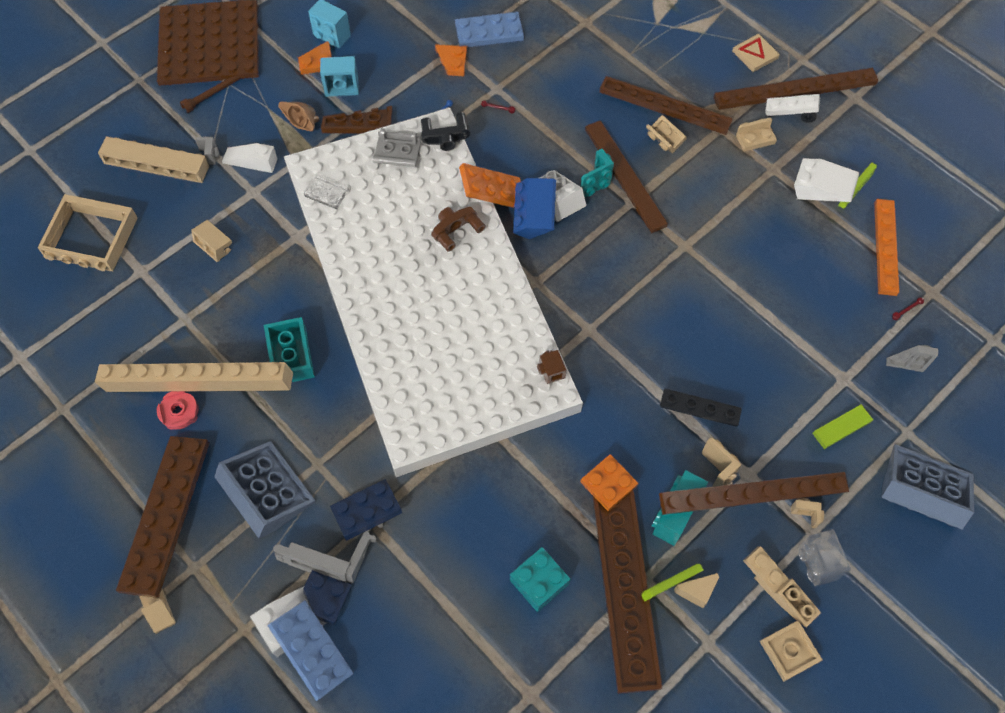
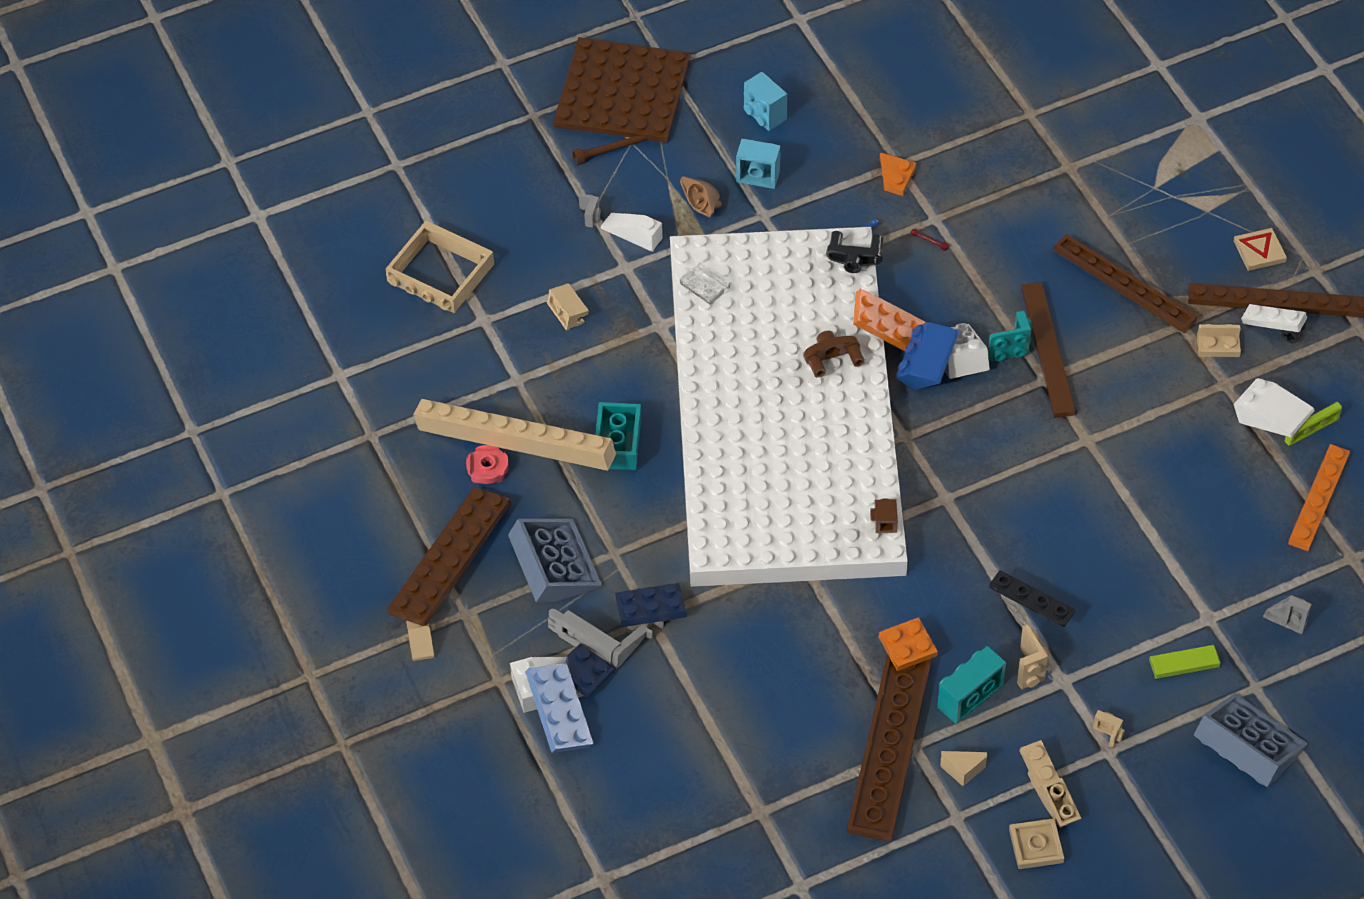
camera: 20 degrees right, 10 degrees down
(154, 159) = (528, 206): tan brick -> none
(311, 60) = (730, 139): orange wing -> none
(357, 122) = (763, 218): reddish brown wing -> none
(397, 148) = (796, 257): light grey piece -> none
(489, 29) = (950, 149): medium blue plate -> none
(539, 579) = (804, 712): teal brick -> none
(666, 133) = (1112, 315): tan bracket -> none
(671, 582) = (933, 748): lime tile -> none
(752, 493) = (1054, 688): reddish brown plate -> none
(823, 558) = (1102, 768): clear brick -> none
(896, 315) = (1297, 570): dark red hinge -> none

